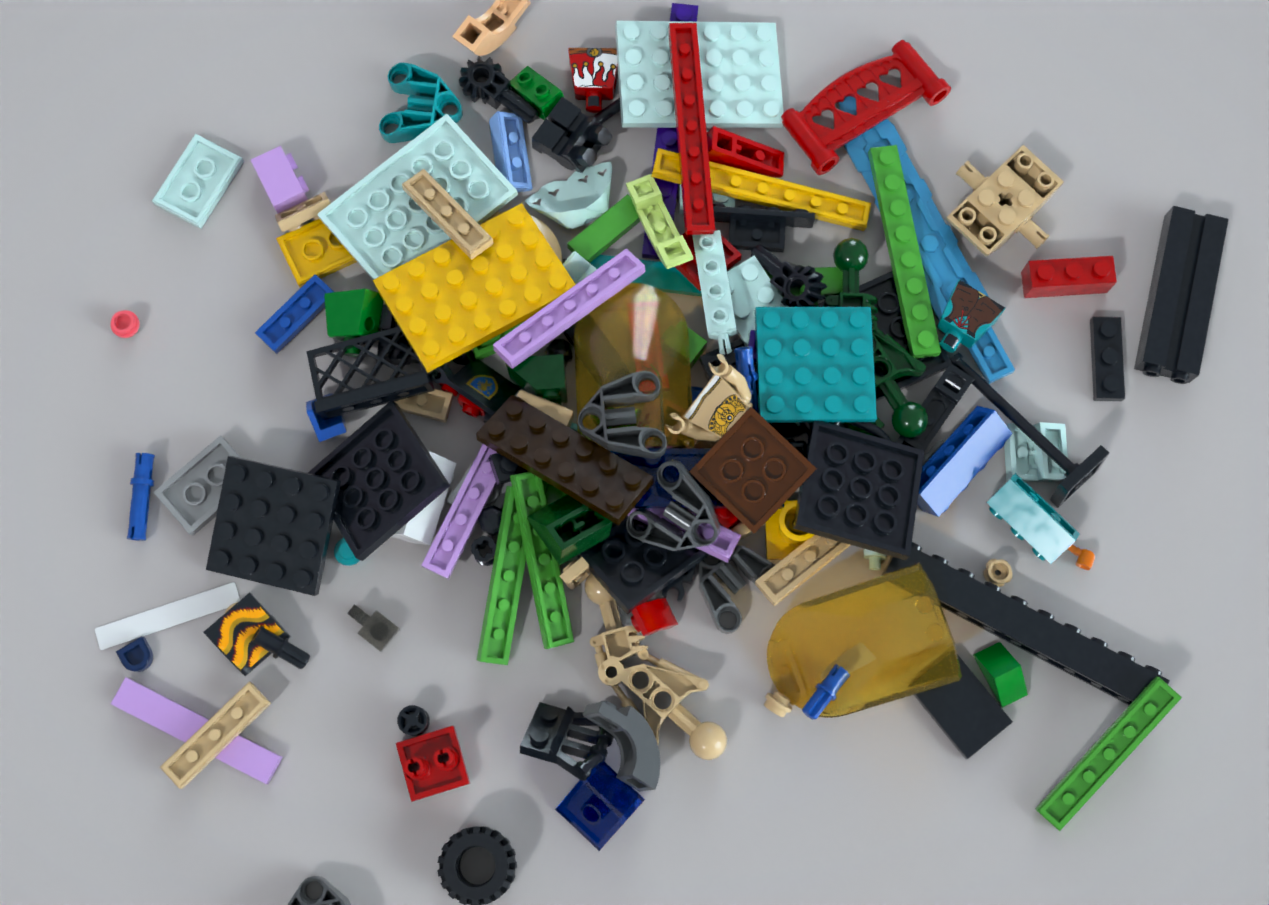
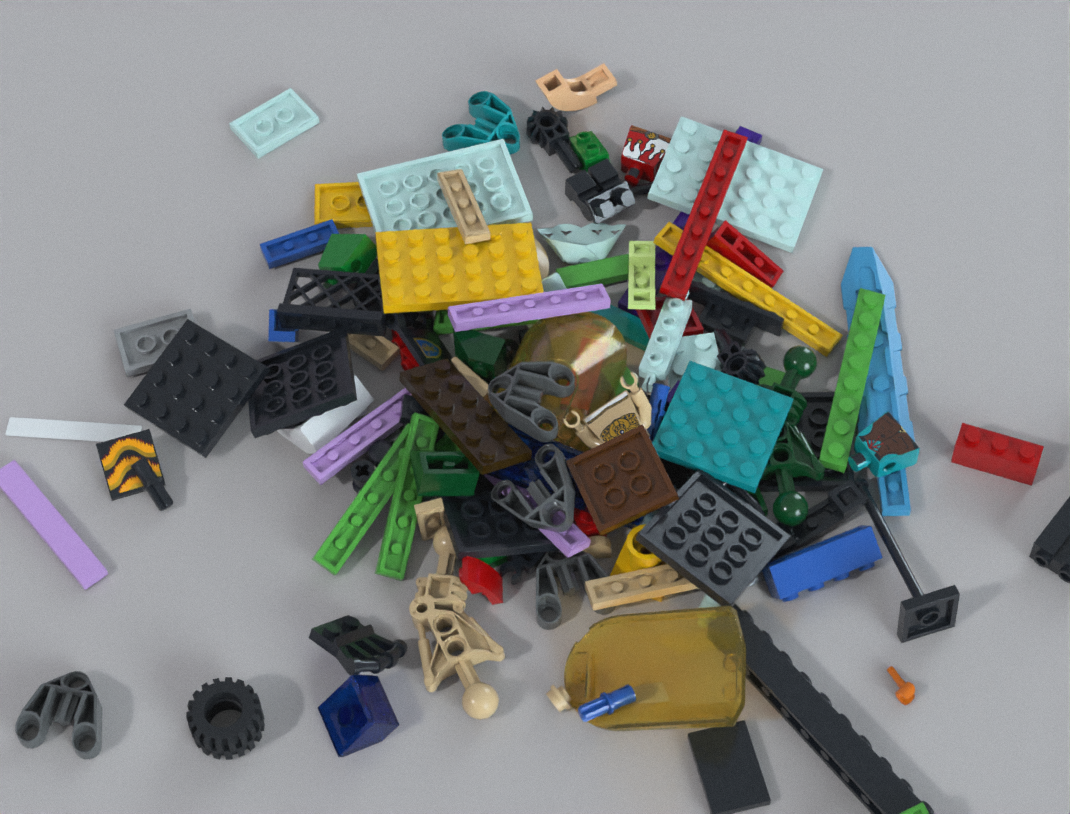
camera: 25 degrees right, 20 degrees down
(125, 324) = (158, 202): coral plate -> none
(136, 655) = (32, 448): dark blue tile -> none
(141, 491) = (107, 322): blue pin -> none
(215, 735) = (62, 530): tan tile -> none
(279, 179) = (340, 143): lavender brick -> none
(293, 218) = (336, 174): tan plate -> none
(344, 554) = (246, 439): teal plate -> none
(375, 629) = (238, 501): clear smoke plate -> none
(409, 717) = (233, 579): black wheel -> none
(432, 763) = (231, 625): red plate -> none
(510, 149) = (545, 188): light blue slope -> none
(635, 740) = (414, 665): dark grey arch -> none
(821, 142) = (818, 271): red piece -> none
(1002, 674) = (780, 759): green slope -> none
(1005, 572) = (820, 665): tan plate -> none
(1020, 187) = (964, 373): tan slope -> none
(1028, 460) = (889, 589): light aqua slope -> none
(1032, 519) = (868, 635): brick -> none
(1107, 359) = (1005, 537): black plate -> none

